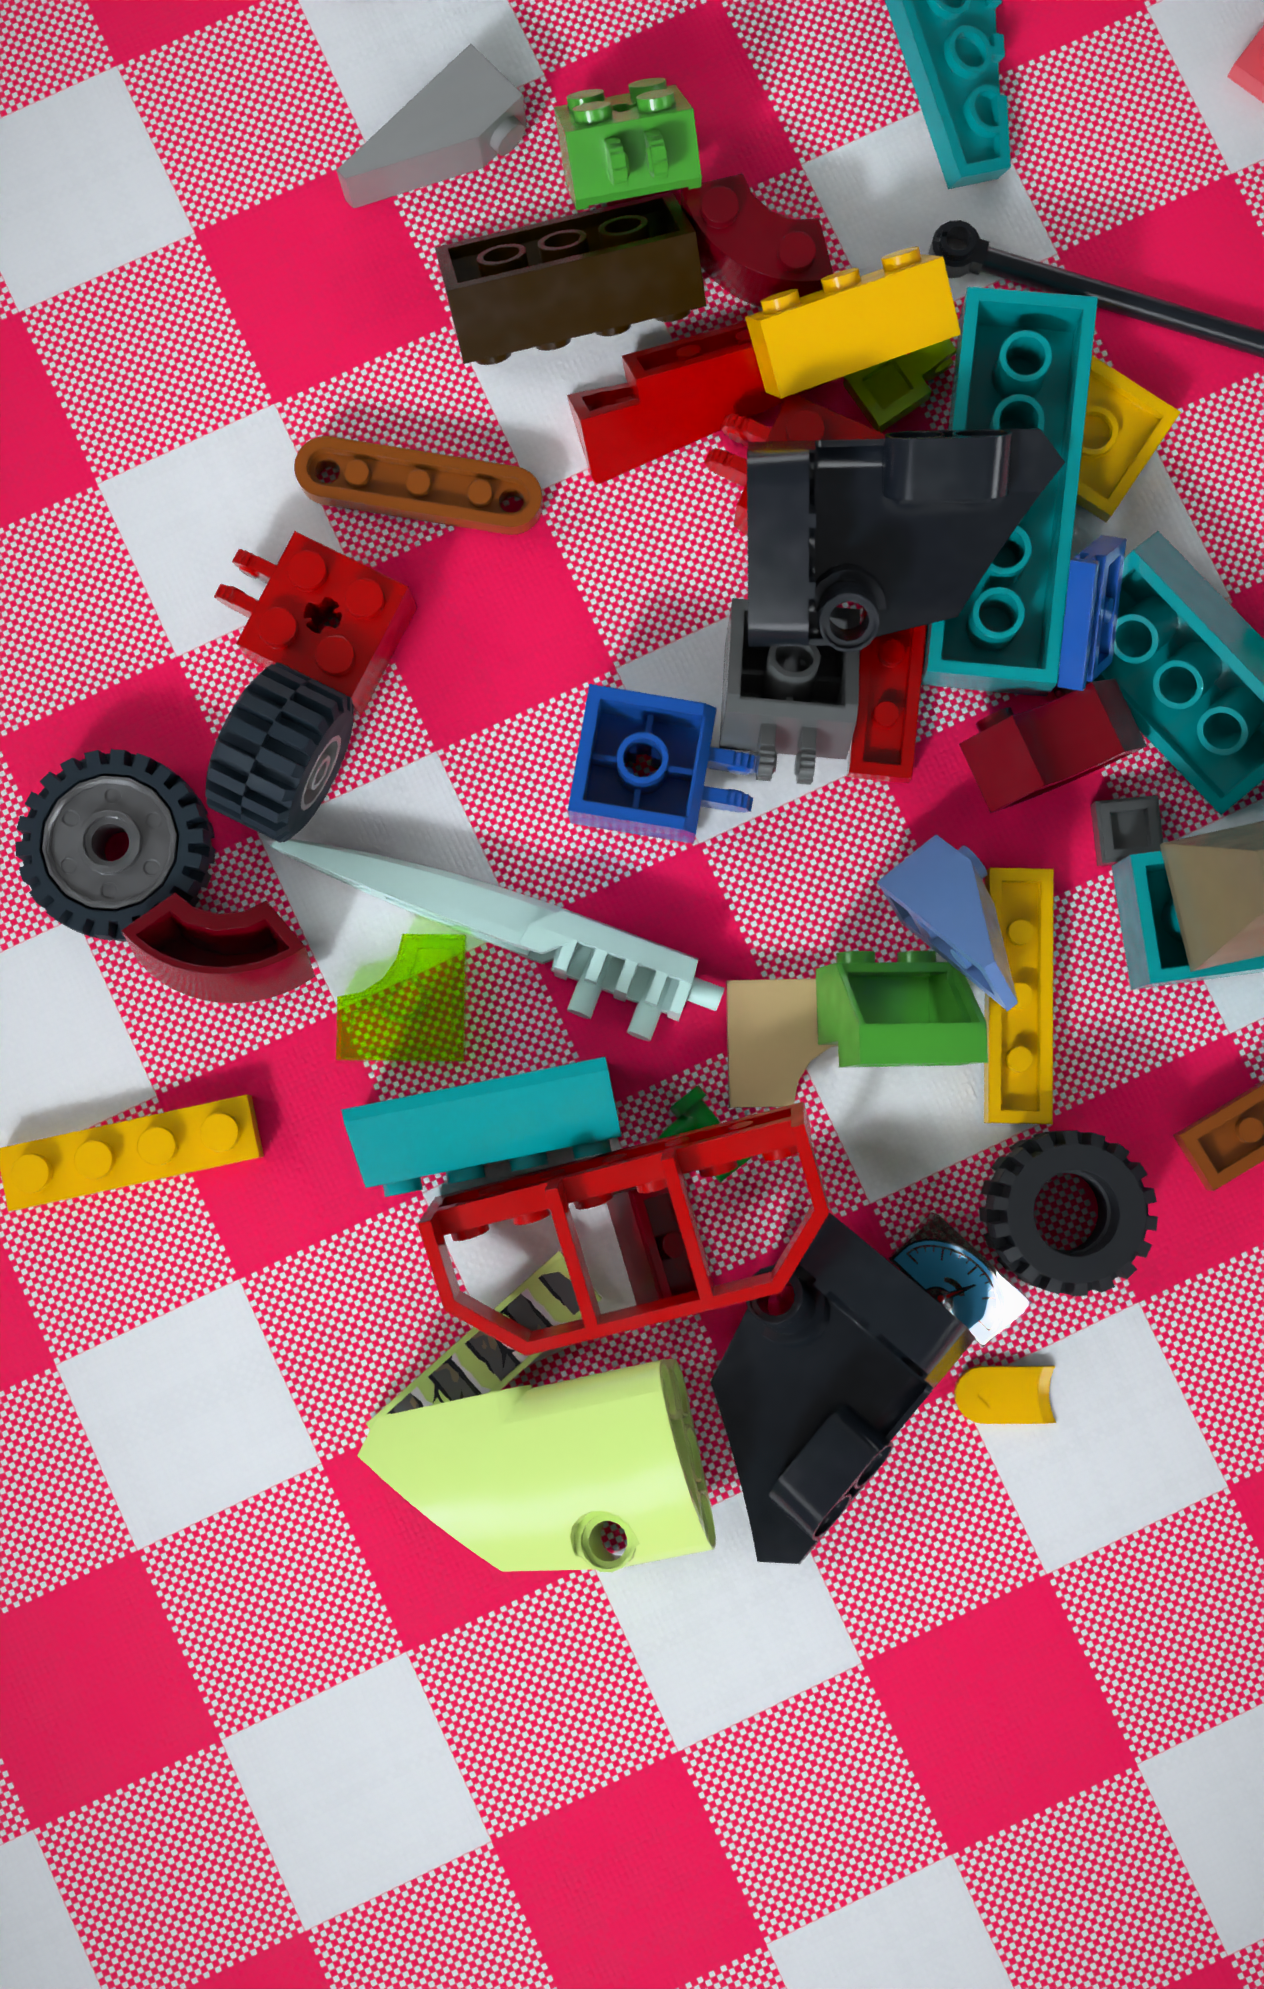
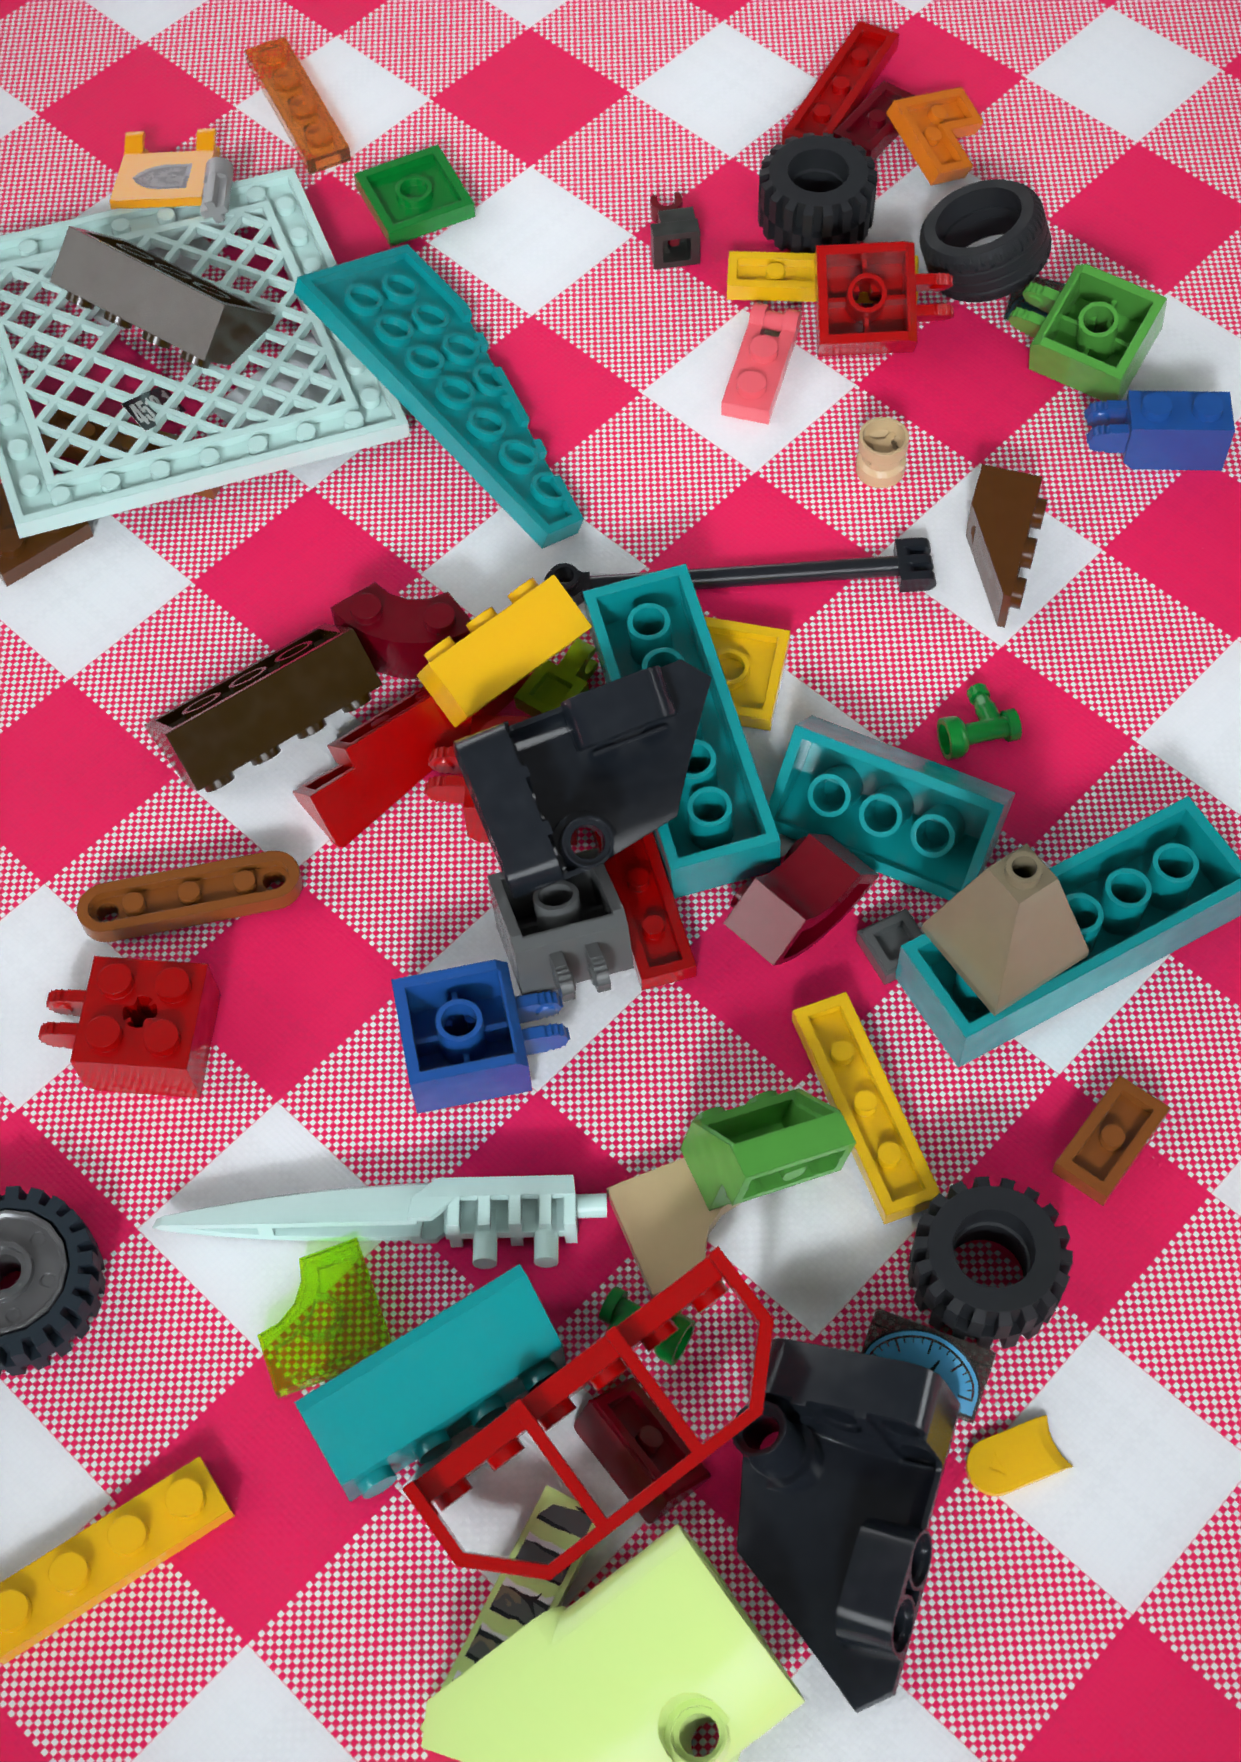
camera: 20 degrees left, 25 degrees down
(219, 955) = (134, 1330): dark red brick -> none
(279, 752) = (136, 1134): black wheel -> none
(441, 133) = (121, 642): light grey slope -> none
(627, 143) = (277, 594): bright green hinge -> none
(947, 906) = (769, 1050): medium blue slope -> none
(1091, 612) = (784, 781): blue plate -> none

